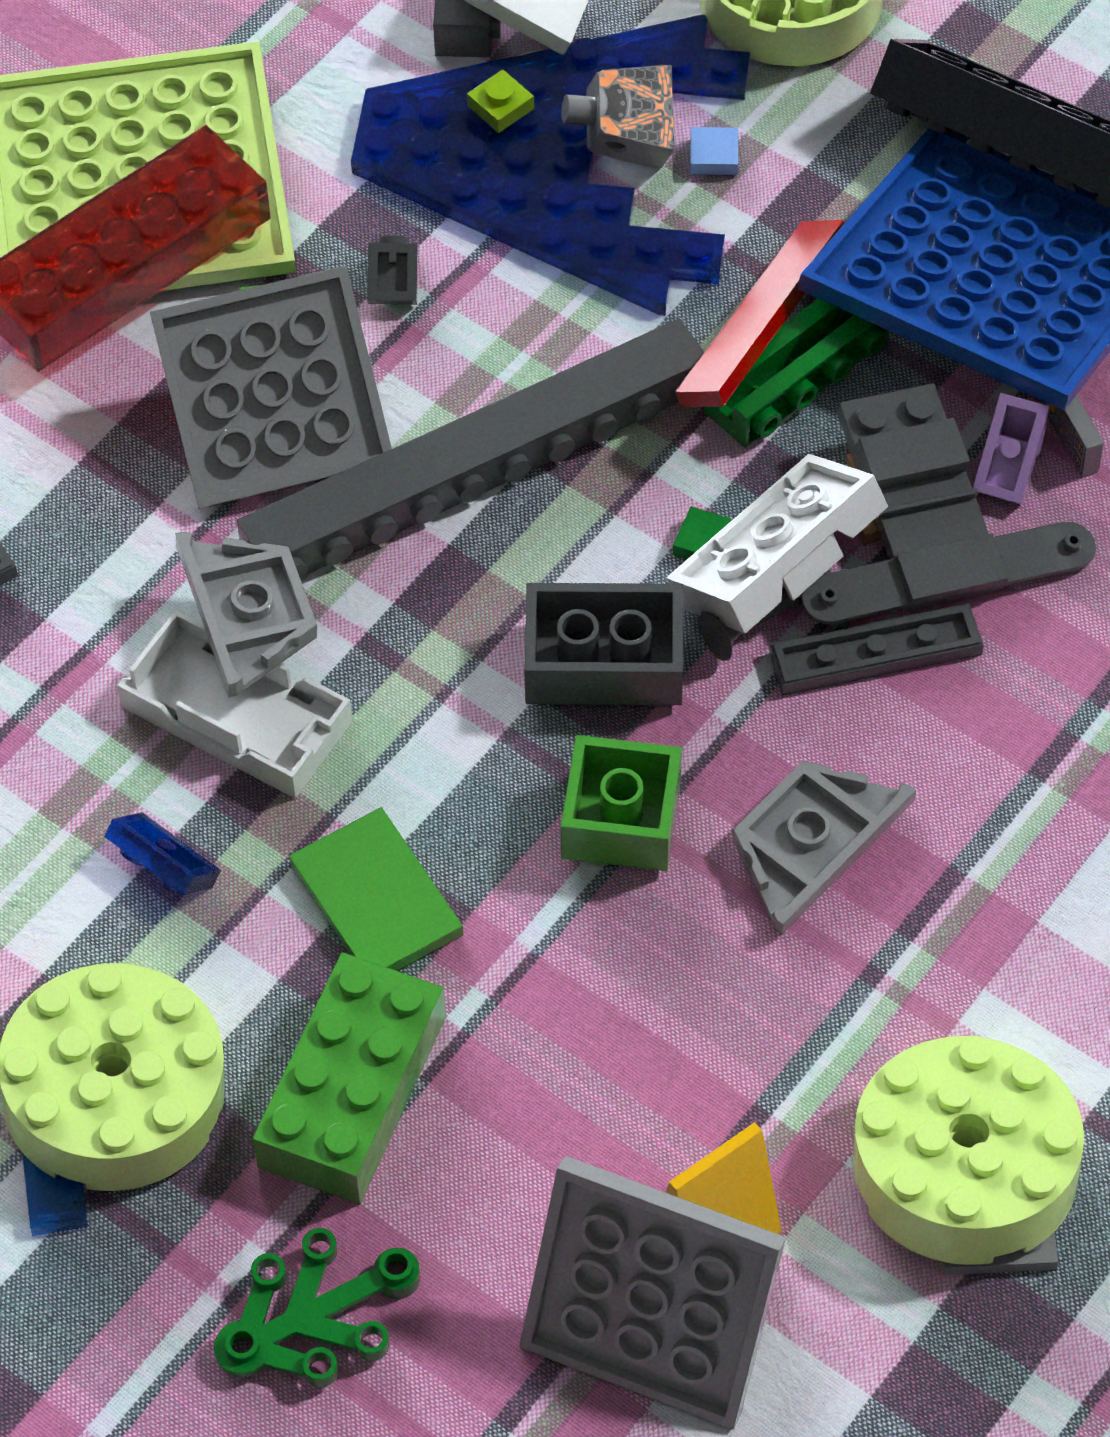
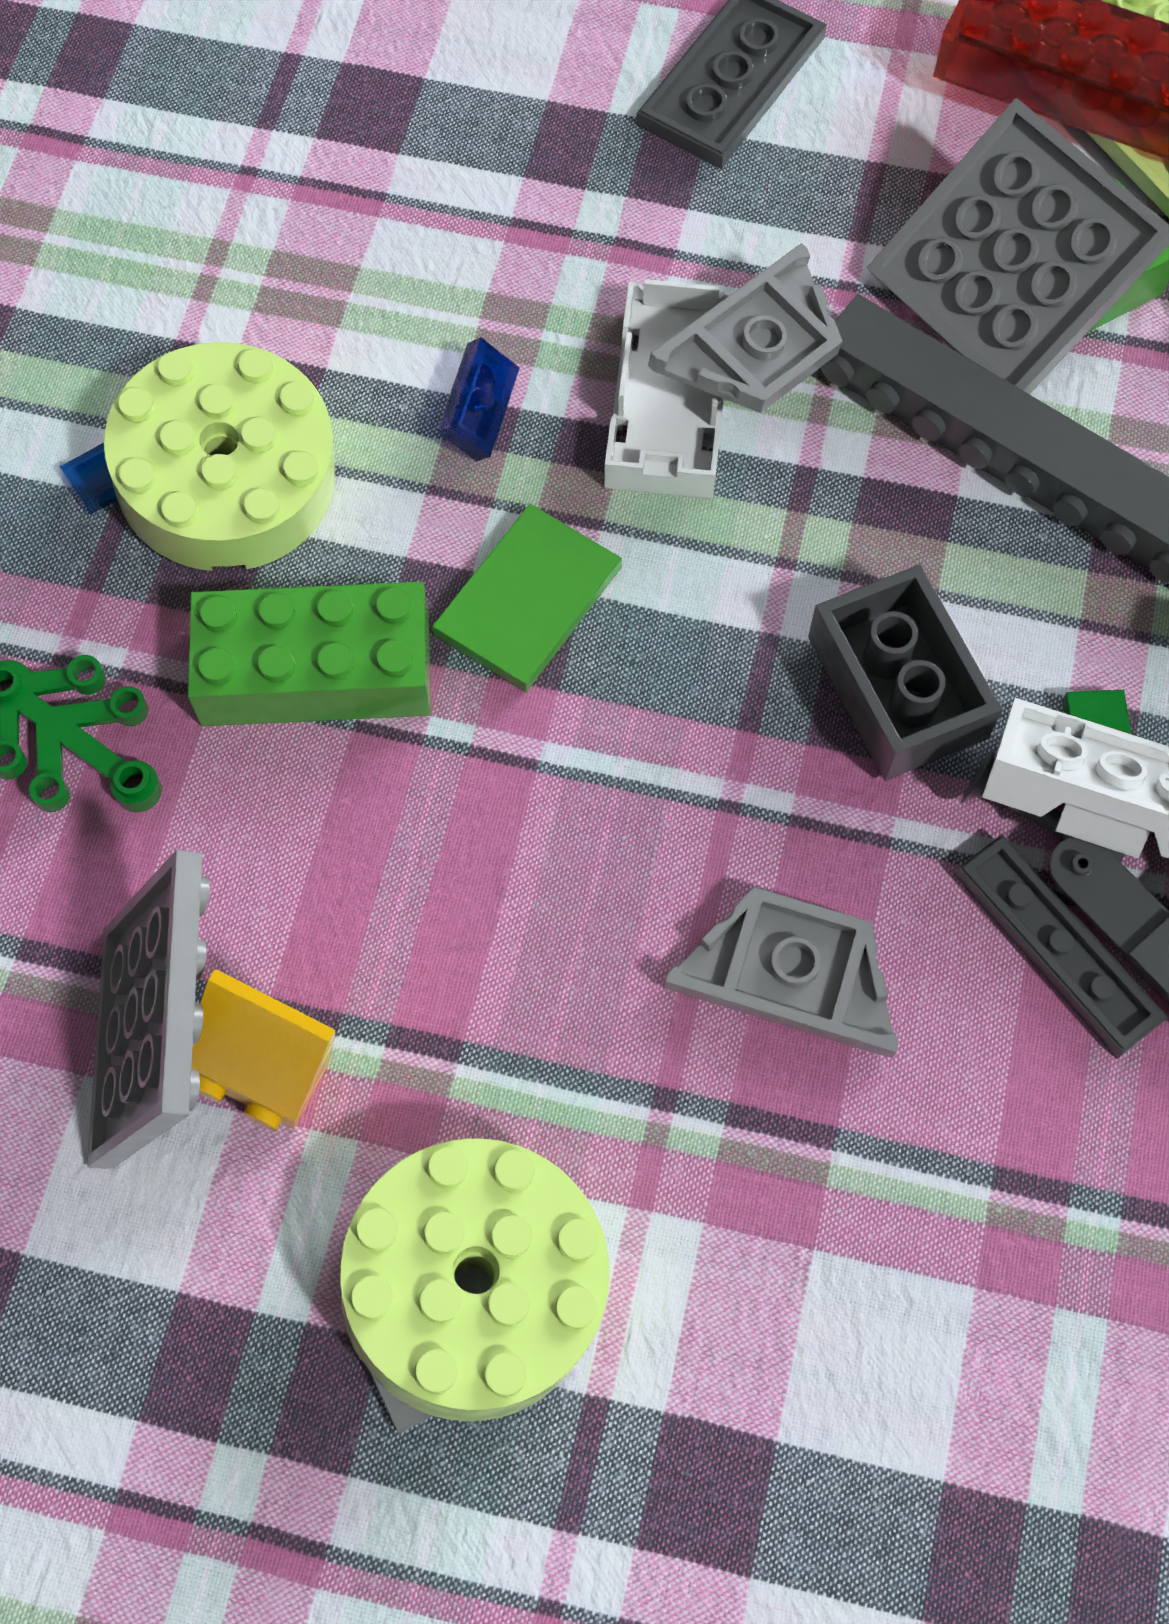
camera: 65 degrees right, 10 degrees up
(621, 803) = (725, 764): bright green brick -> none

